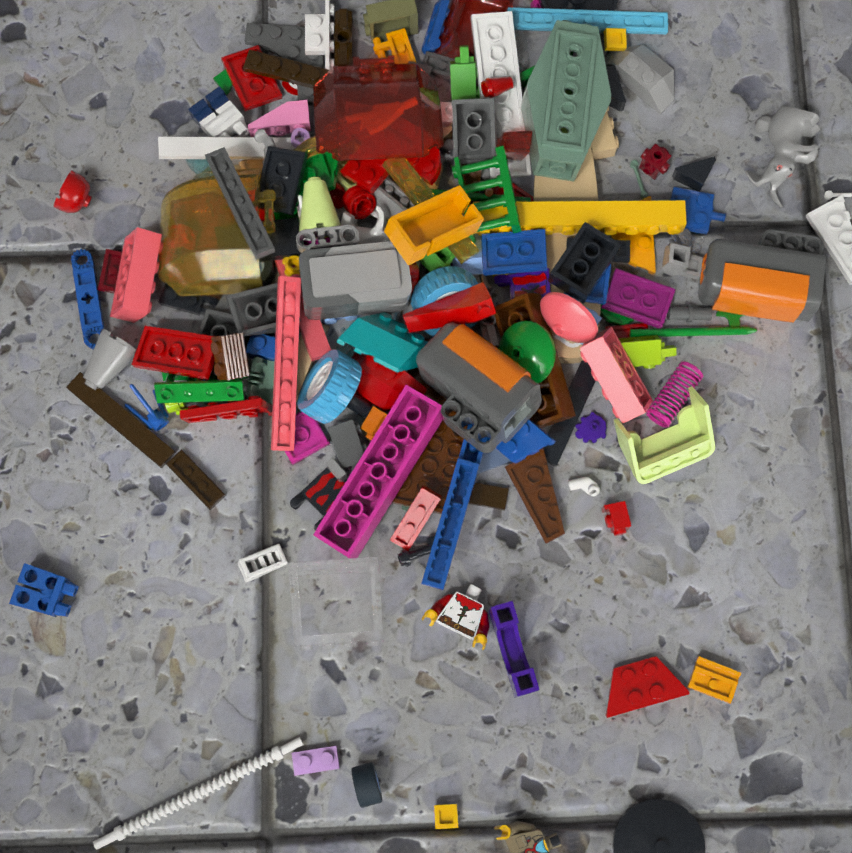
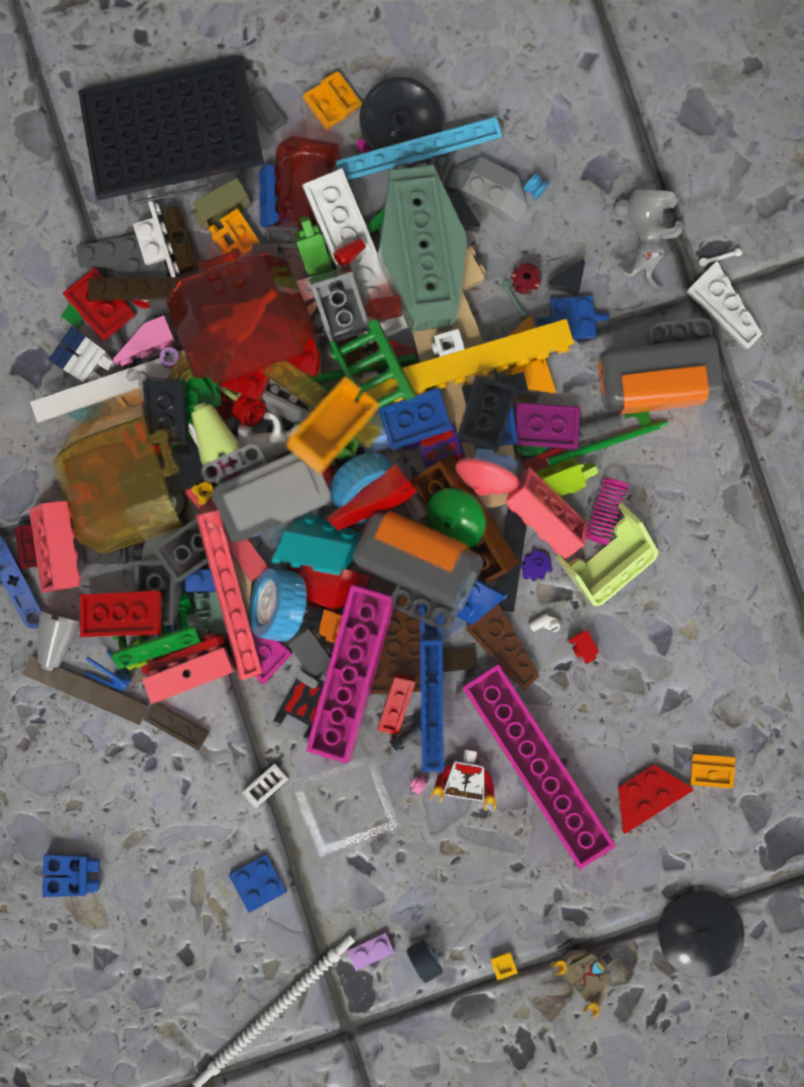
camera: 20 degrees left, 10 degrees up
(223, 430) = (176, 679): none -> coral brick
(224, 657) = (257, 883): none -> blue plate
(230, 356) = (174, 606): reddish brown brick -> none
(239, 203) = (136, 455): dark grey plate -> none
(414, 606) = (418, 784): none -> bright pink plate
(505, 626) = (523, 802): dark purple arch -> none
(540, 622) = (538, 766): none -> dark pink brick
(570, 189) = (451, 337): none -> white brick
(615, 39) = (452, 162): yellow plate -> none
(679, 261) = (579, 376): light grey brick -> none
(687, 84) = (536, 186): none -> dark azure wheel

